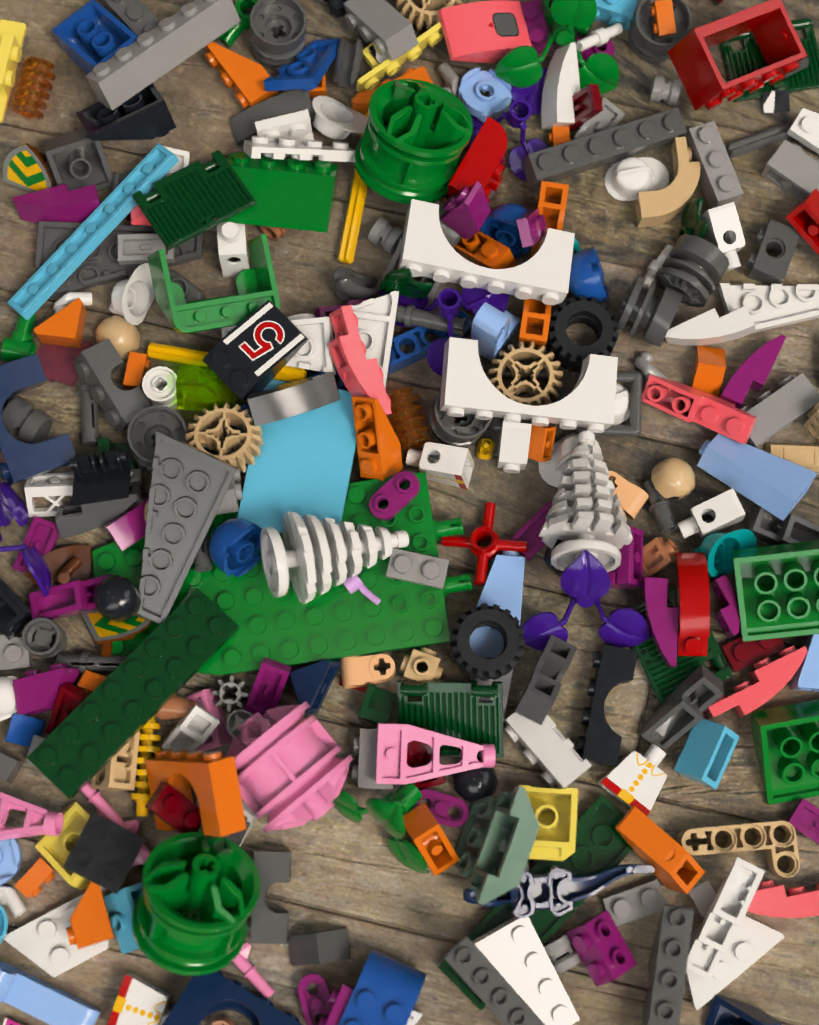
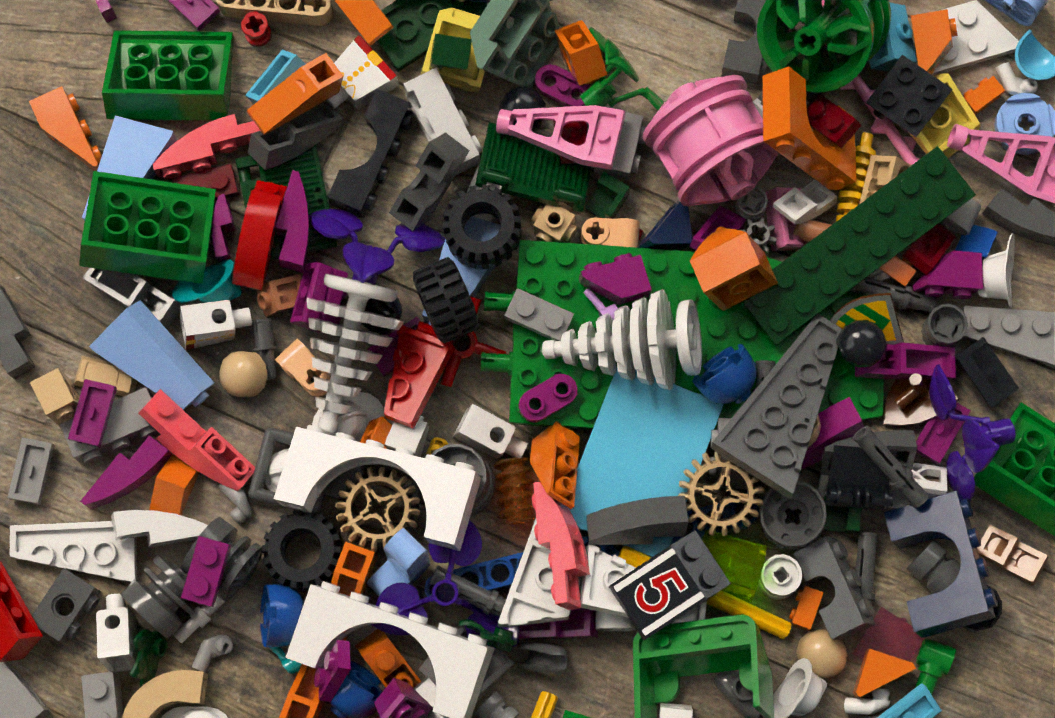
camera: 160 degrees left, 0 degrees up
(54, 475) = (899, 477): none -> dark grey pin
(249, 644) = (731, 267): none -> orange piece
(349, 614) = (618, 281): none -> magenta slope
(505, 561) = (446, 300): none -> black tyre
(518, 498) = (415, 374): none -> red wing
(553, 805) = (450, 52): none -> dark green panel
(641, 244) = (211, 648): none -> light grey arm
(660, 285) = (206, 571): none -> magenta plate
(691, 737) = (297, 94): none -> orange slope
(737, 806) = (256, 19): none -> red bush
(797, 409) = (92, 413): none -> magenta plate

